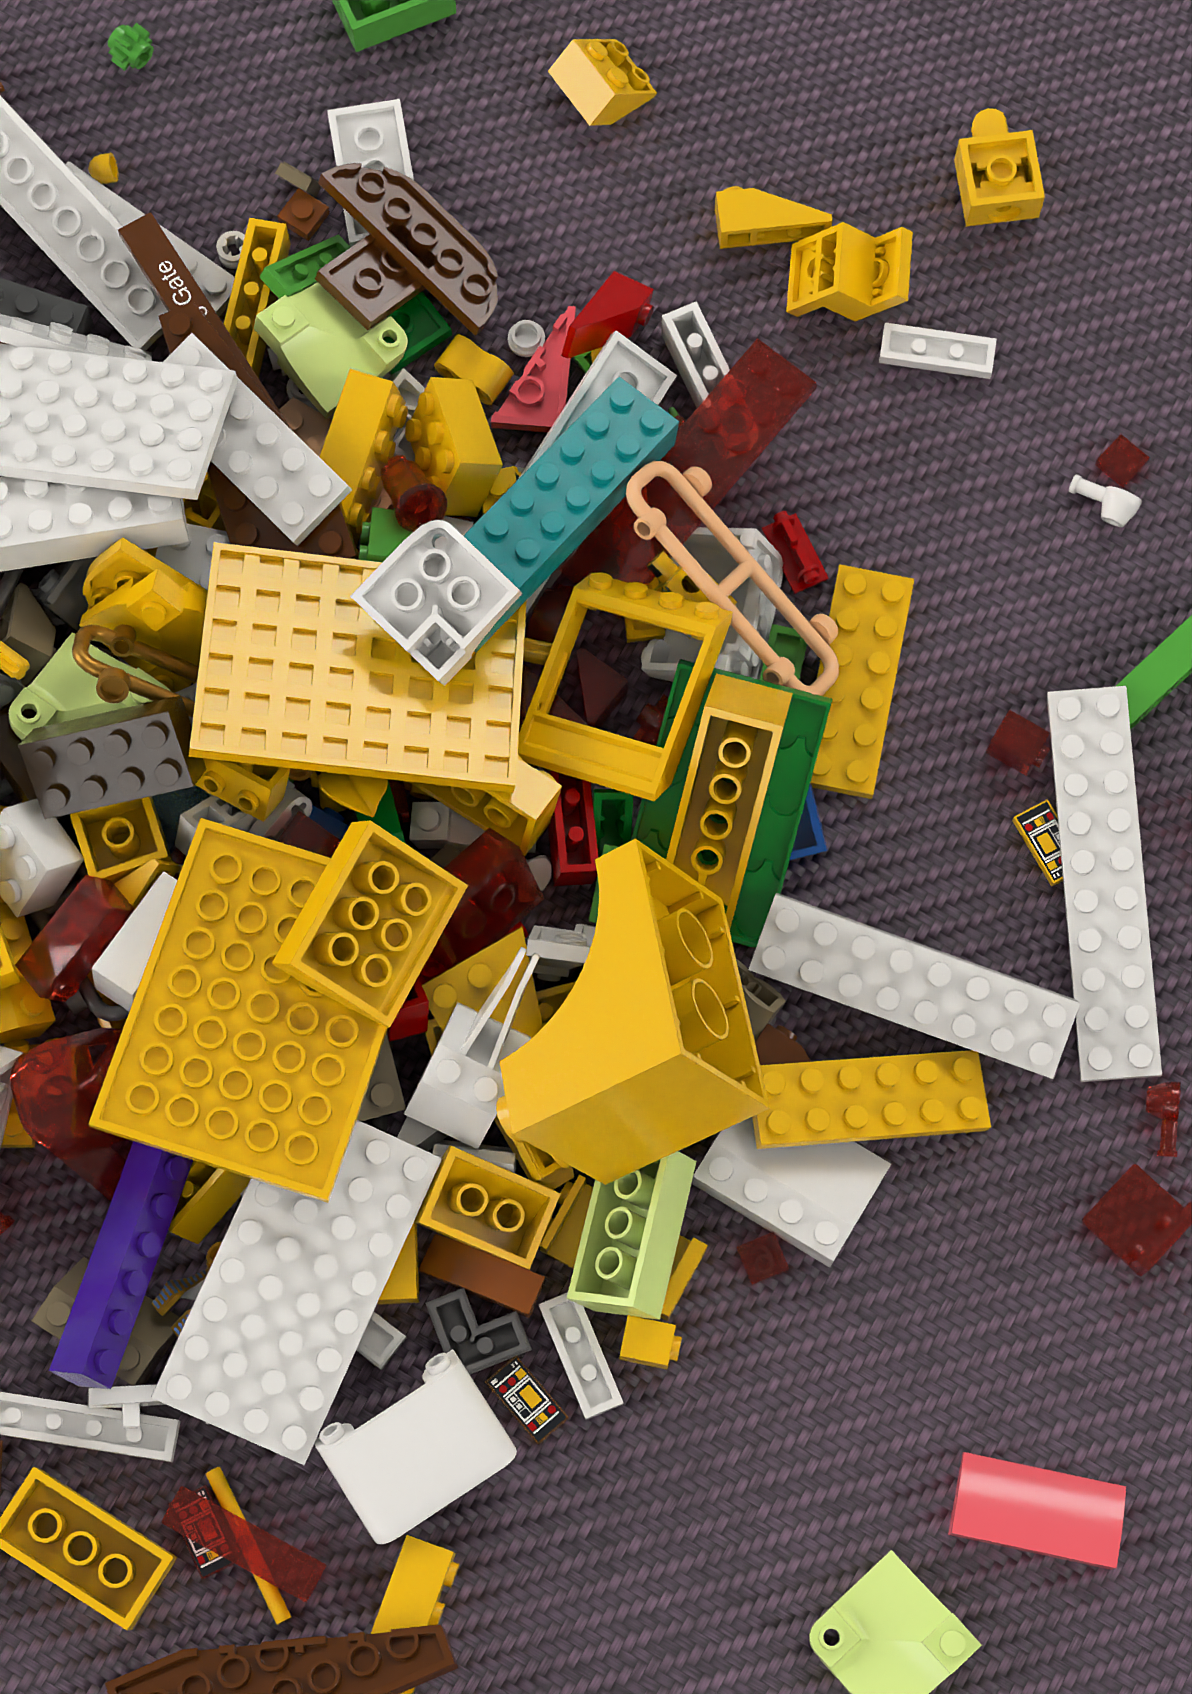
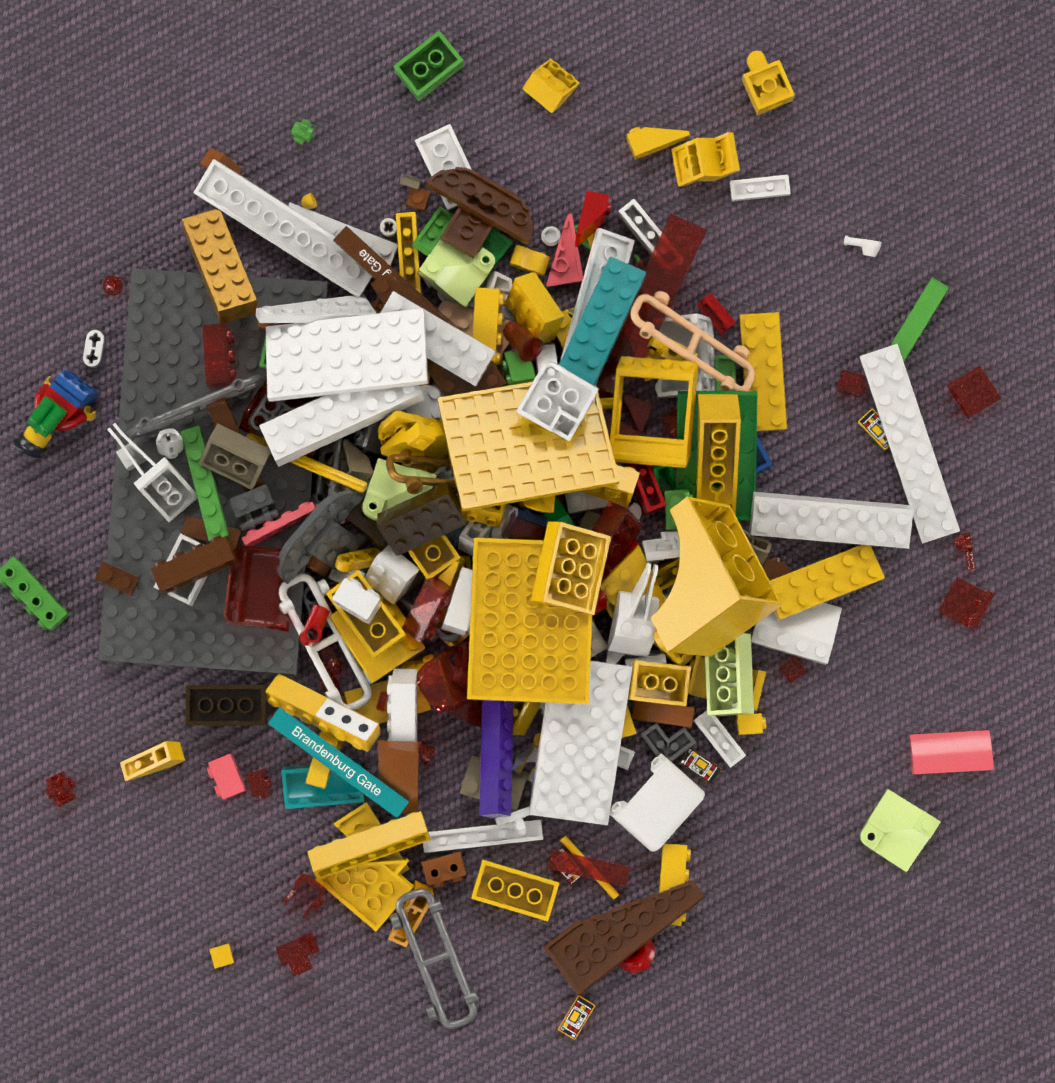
camera: 10 degrees left, 10 degrees up
(1122, 461) = (866, 221): clear red tile -> none

